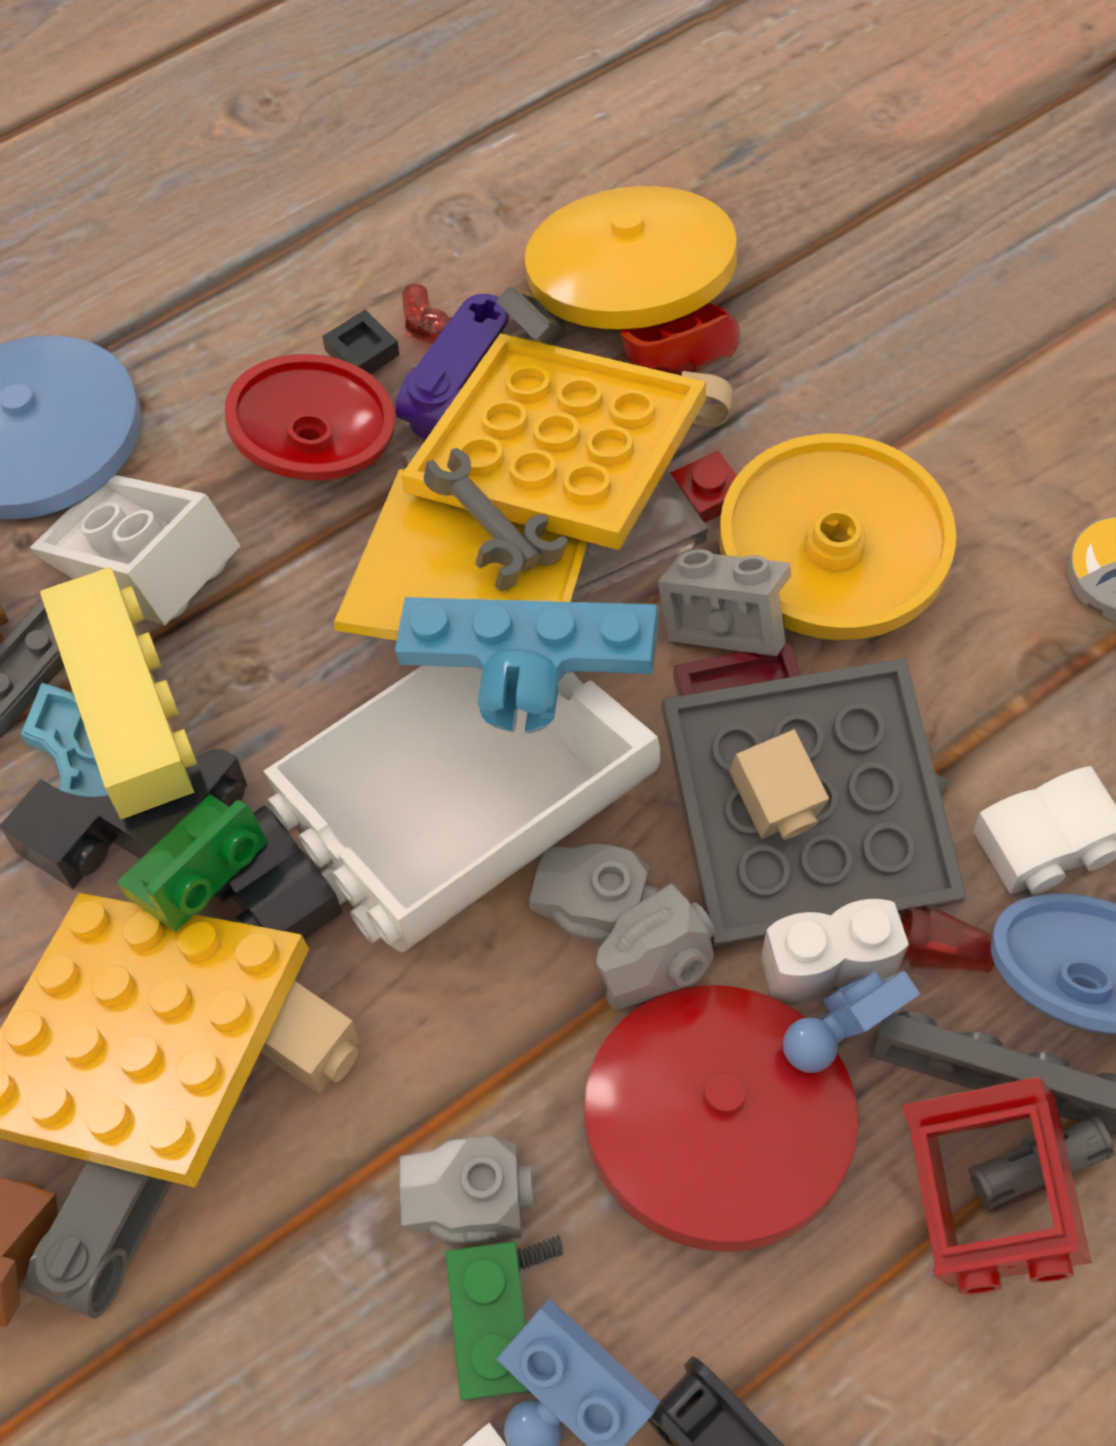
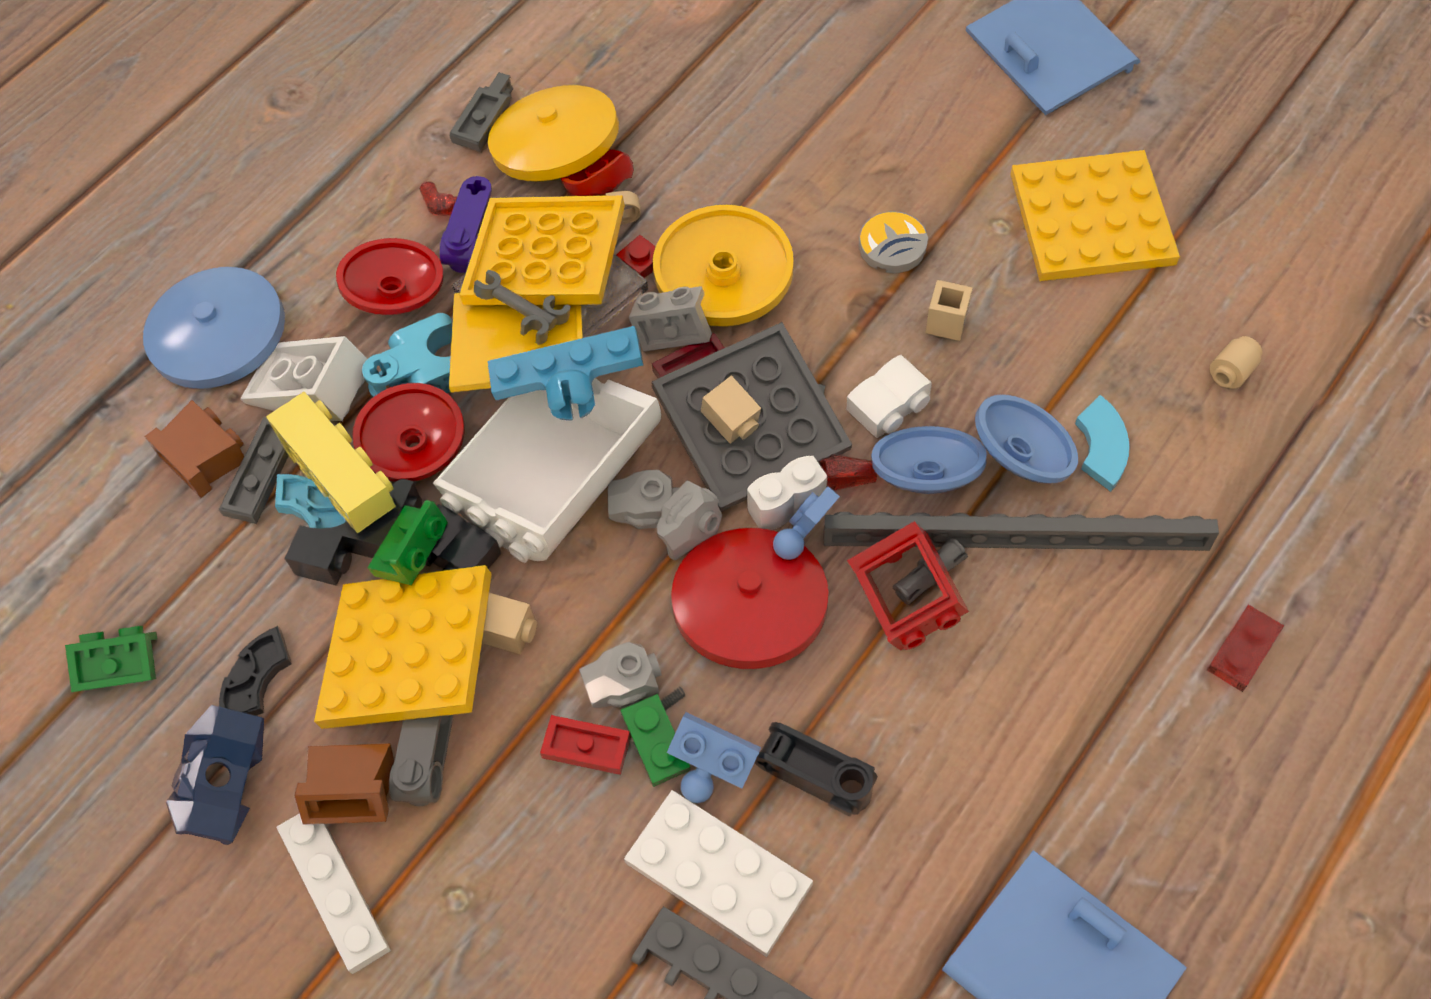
camera: 15 degrees left, 0 degrees up
(250, 648) = (409, 416): none -> red dish
(300, 560) = (412, 356): none -> medium azure piece
(362, 343) = (405, 225): black plate -> none
(371, 1292) = (585, 744): none -> red plate
(531, 199) = (481, 113): none -> dark grey hinge
(531, 315) = (505, 182): dark grey tile -> none

